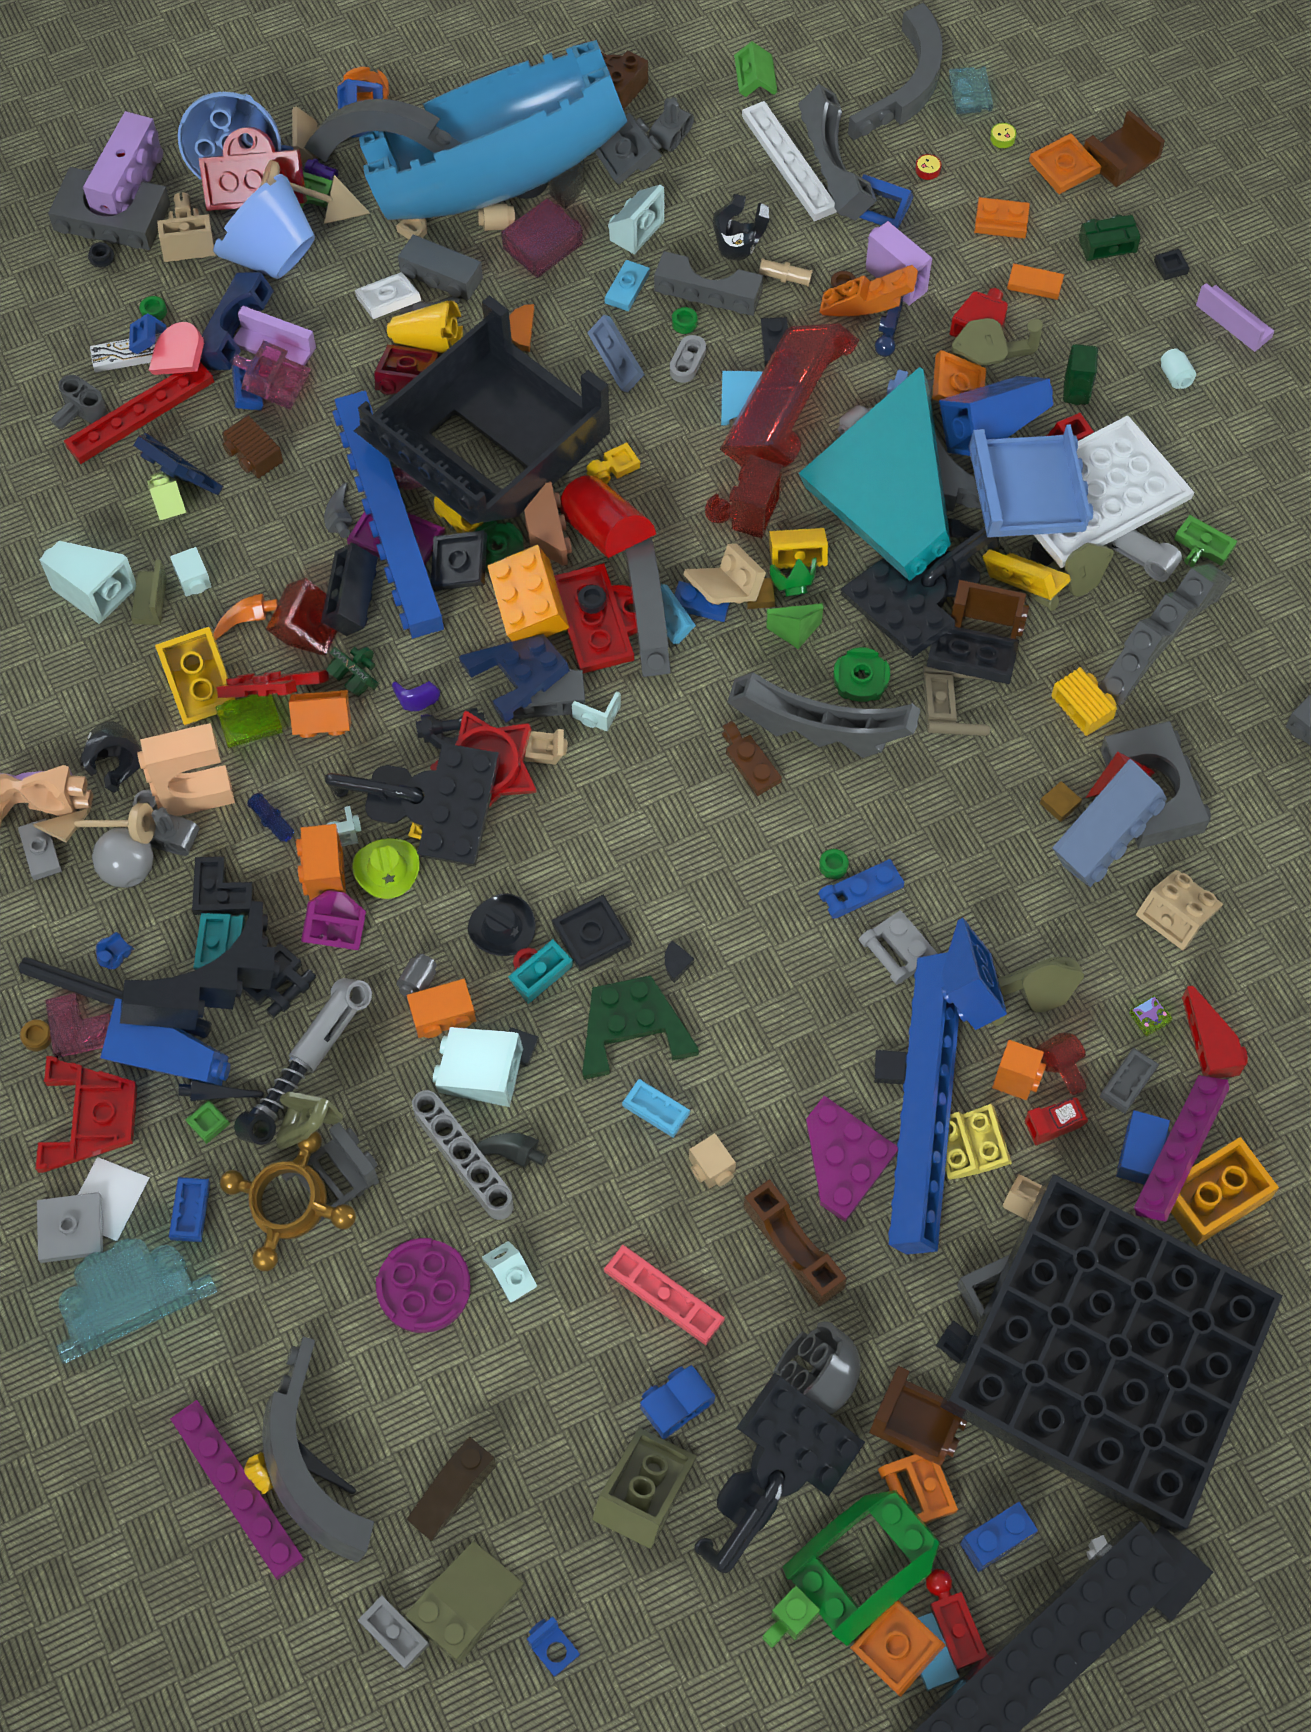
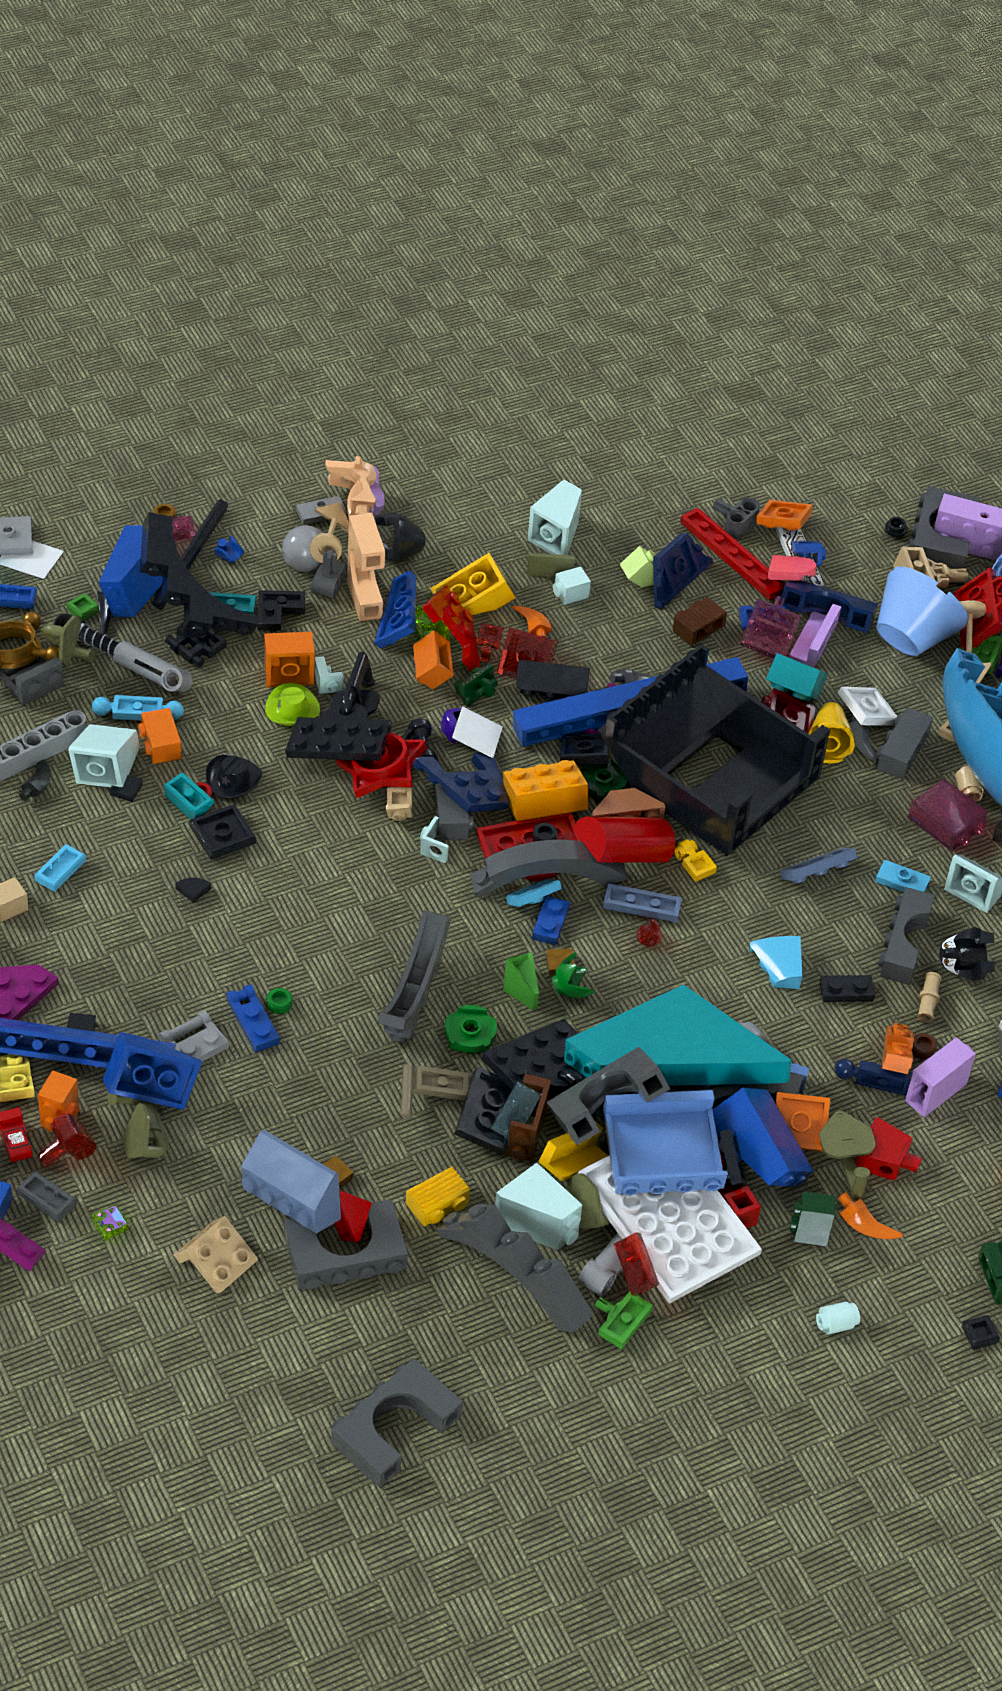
camera: 85 degrees right, 15 degrees down
(83, 353) = (784, 514): none -> orange plate
(101, 1114) = (89, 547): red wing -> none
(154, 306) = (843, 562): green tile -> none
(252, 752) = (399, 611): none -> blue wing
(270, 817) = (341, 637): clear blue axle -> none
(277, 657) = (489, 637): none -> clear red plate
(334, 921) = (240, 667): magenta slope -> none
(356, 350) = (793, 675): none -> teal brick
(392, 1040) = (132, 706): none -> medium azure plate
(417, 975) = (191, 722): dark grey brick -> none
(432, 668) = (477, 732): none -> white sticker
(521, 326) = (846, 801): orange tile -> none
(629, 1012) = (149, 855): dark green wing -> none
(676, 514) = (642, 903): none -> sand blue plate
(684, 320) = (866, 921): green tile -> none
(686, 360) = (818, 918): light grey plate -> none
(735, 580) = (562, 924): tan bracket -> none
(750, 760) = (385, 946): reddish brown plate -> none
(755, 496) = (654, 951): clear red brick -> none
(782, 392) = (713, 945): clear red windscreen -> none
(801, 544) = (603, 983): yellow brick -> none
(961, 496) = (627, 1074): none -> dark grey arch
(987, 620) = (516, 1108): none -> clear light blue plate
(1031, 428) = (729, 1147): none -> black plate
(1035, 281) = (943, 1206): orange tile -> none
(1059, 346) = (861, 1219): none -> orange bar
(1095, 604) = (540, 1207): none -> light aqua slope
(1161, 518) = (636, 1264): none -> clear red plate
(1214, 1040) = (77, 1262): red slope -> none
(1234, 317) = (913, 1379): lavender panel -> none

